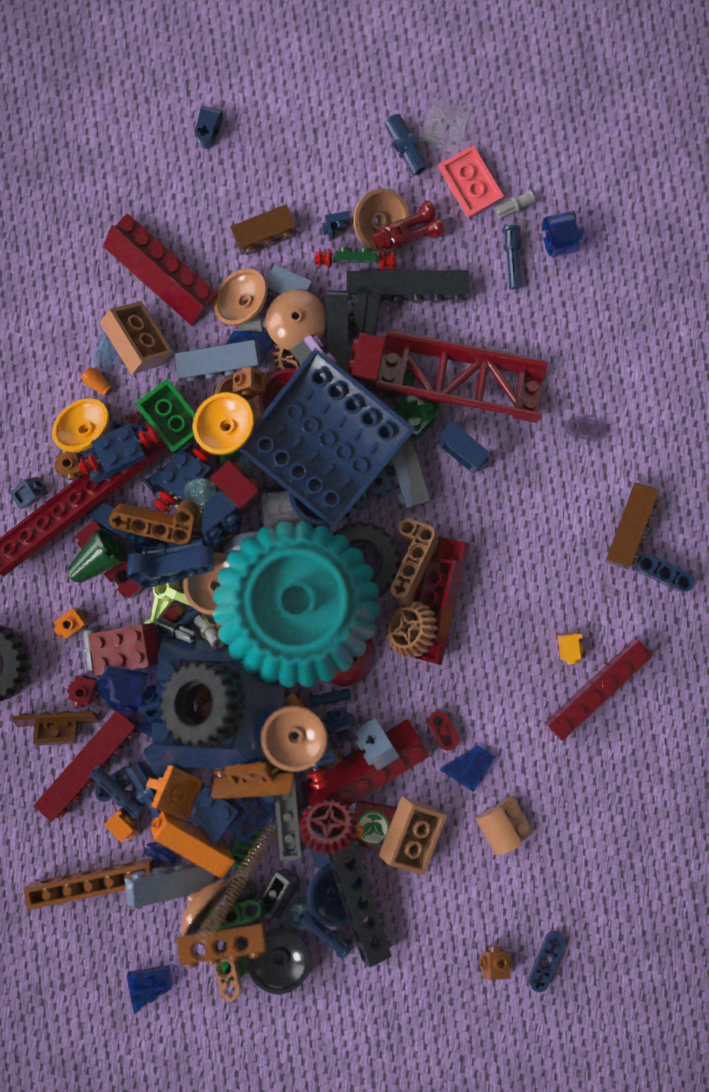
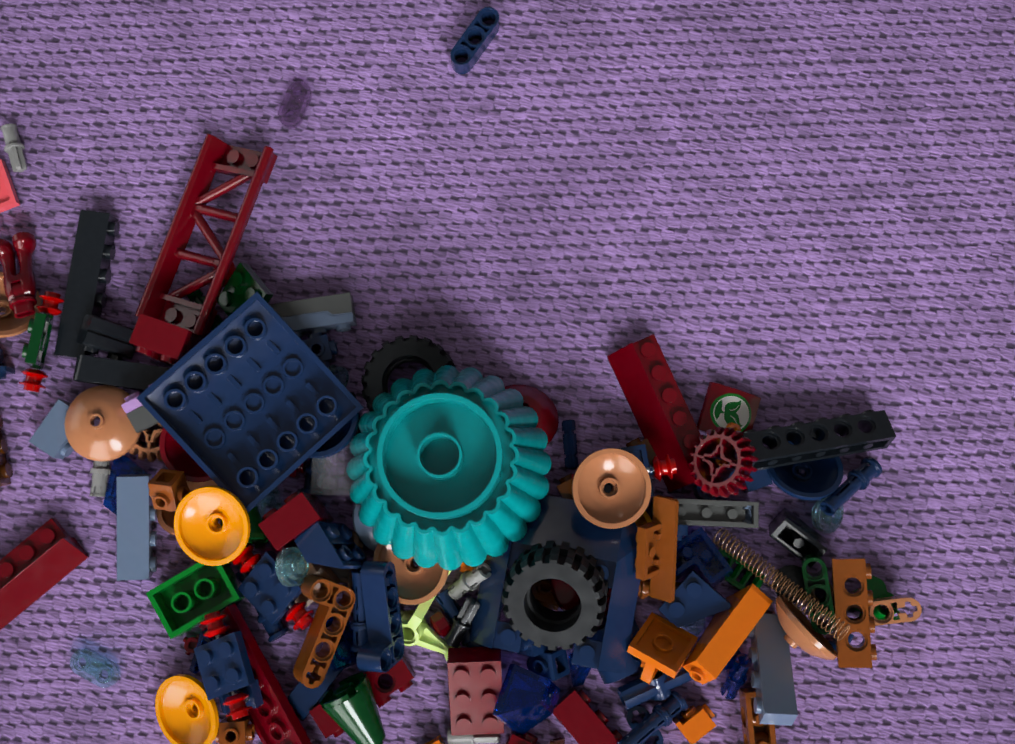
camera: 80 degrees left, 5 degrees down
(95, 380) = (134, 687): orange cone -> none
(136, 337) = (87, 627): nougat brick -> none
(148, 984) = (893, 714): clear blue wing -> none
(240, 297) = (62, 488): nougat dish -> none
(284, 974) = (894, 539): black dish -> none
(340, 724) = (598, 433): dark blue brick -> none
(376, 744) = (630, 394): sand blue brick -> none
(411, 563) = (420, 324): nougat beam -> none
(412, 835) = (745, 366): nougat brick -> none
(416, 632) = (504, 327): nougat gear -> none
(440, 592) = (469, 303): dark red slope -> none
(442, 730) = (624, 314): dark red plate -> none
(463, 448) = (293, 244): dark blue window -> none
(469, 767) = (672, 291): clear blue wing -> none
(495, 964) = (904, 290): dark orange brick -> none
(504, 826) = (745, 259): nougat brick -> none
(509, 247) = (64, 155): dark blue pin -> none
(557, 949) = (918, 248): dark blue beam -> none
(561, 234) = (58, 97): clear blue brick -> none
(570, 648) = (547, 156): light orange brick -> none
(598, 689) = (599, 131): dark red brick -> none
(632, 525) = (415, 67): reddish brown brick -> none

